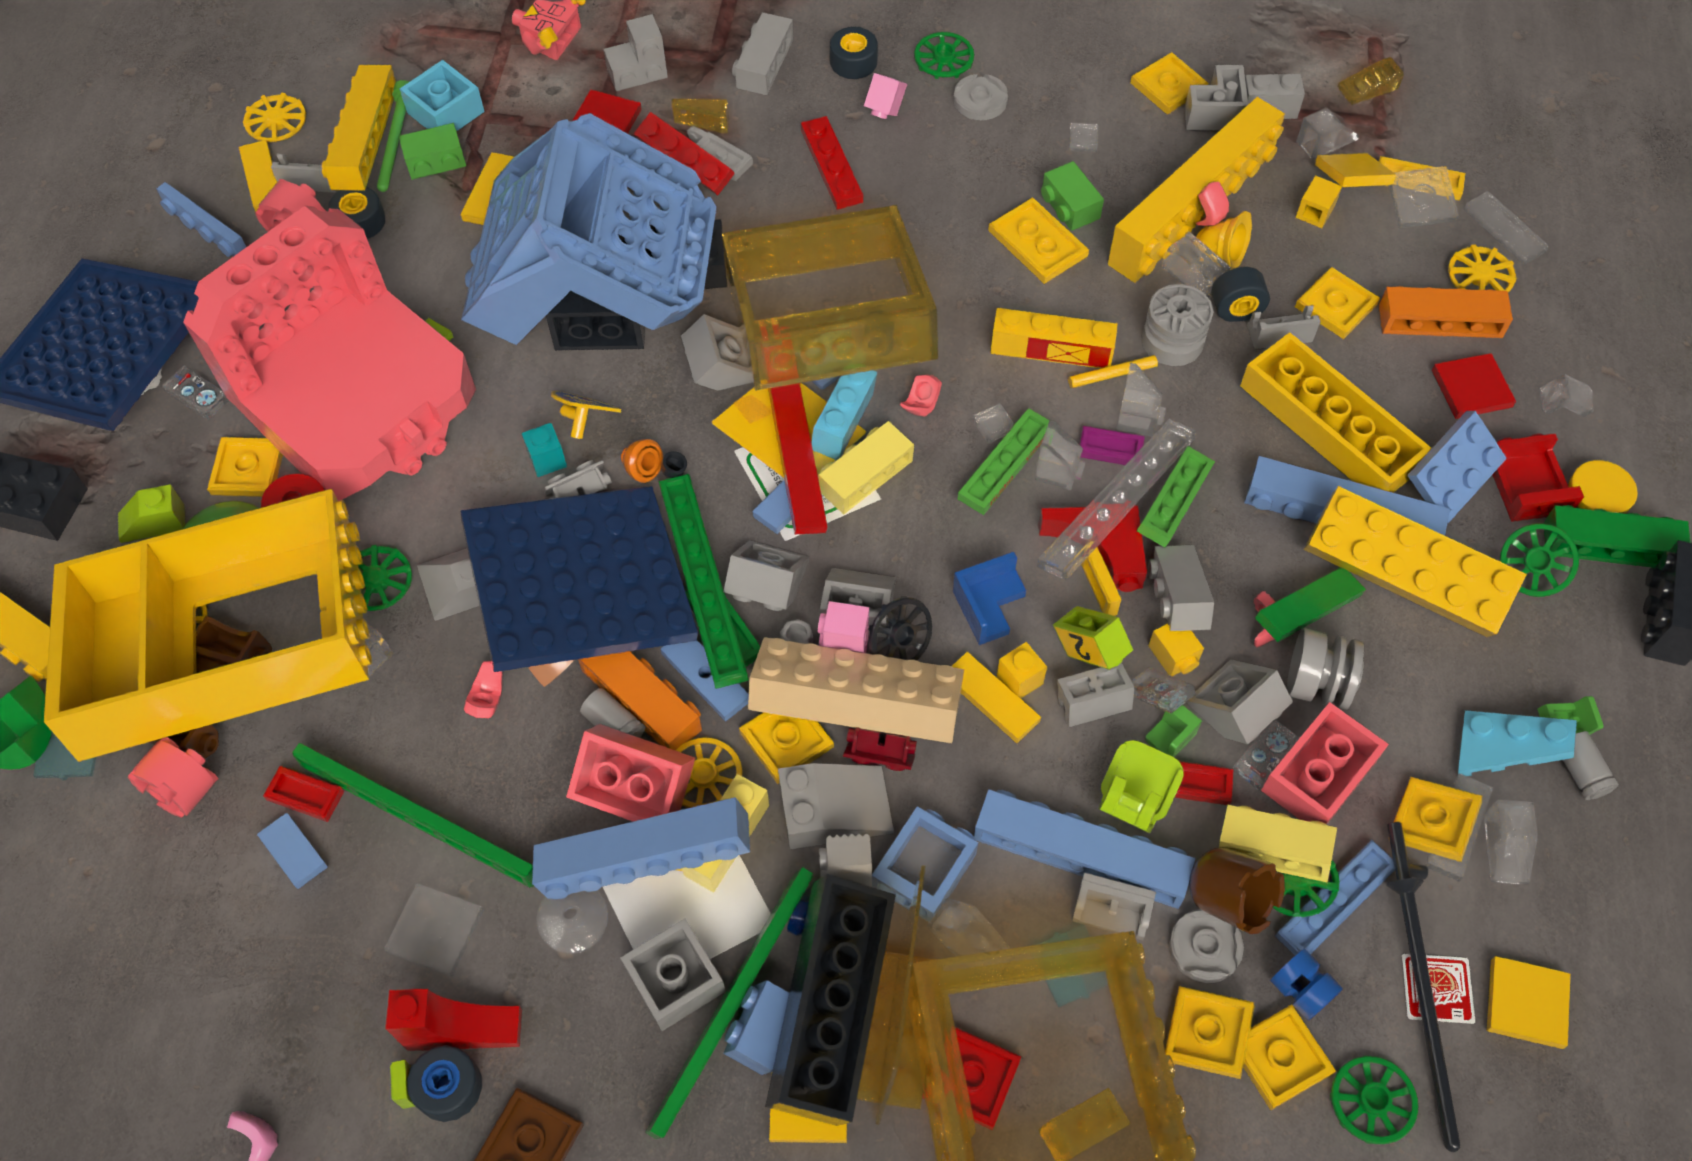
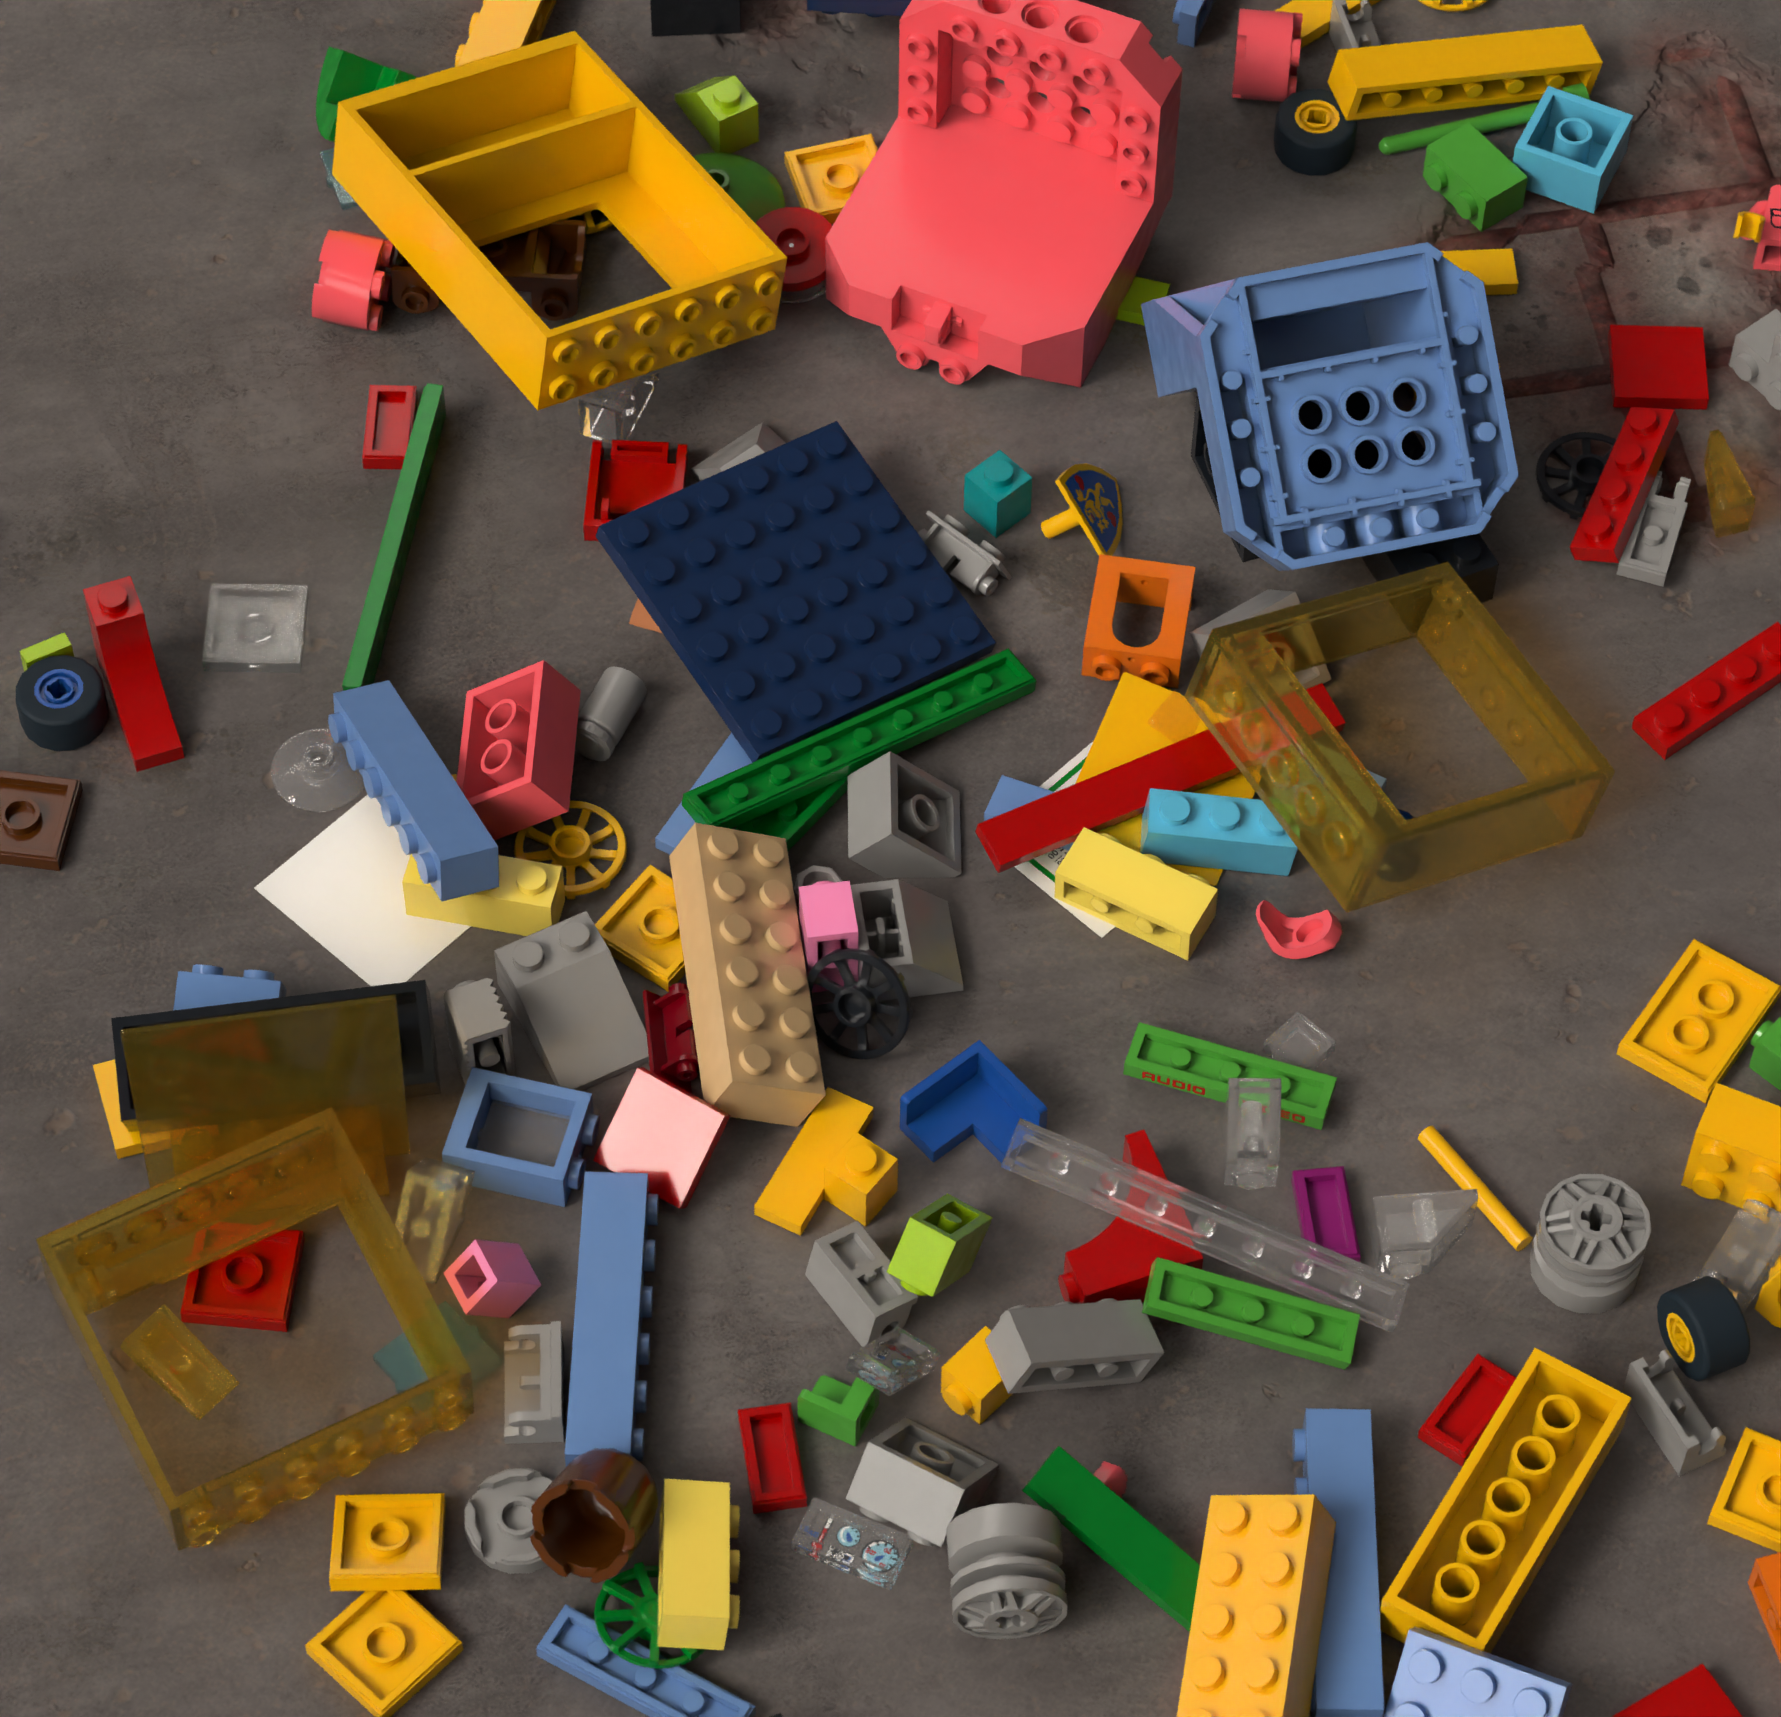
camera: 70 degrees right, 5 degrees down
(292, 850) = (309, 444): medium blue tile -> none
(378, 577) = (725, 384): green wheel -> none
(432, 653) = (630, 480): none -> red container
(485, 692) = (584, 564): coral hair -> none
(640, 404) = (1142, 584): none -> orange panel
(642, 460) = (1029, 616): orange brick -> none
(645, 696) = (649, 743): orange brick -> none
(673, 464) = (1052, 656): black hinge -> none
(673, 974) = (266, 888): light grey brick -> none
(728, 1005) = (182, 955): green tile -> none
(958, 775) = (662, 1134): none -> tile
(1035, 908) = (492, 1279): none -> bright pink brick
(1053, 338) = (1490, 1080): yellow brick -> none
(1101, 583) = (1047, 1255): yellow tile -> none
(1140, 784) = (717, 1372): lime piece -> none
(1252, 418) = (1466, 1409): none -> red tile
(1316, 994) = (486, 1652): blue wheel -> none
(1324, 766) = (841, 1606): coral brick -> none

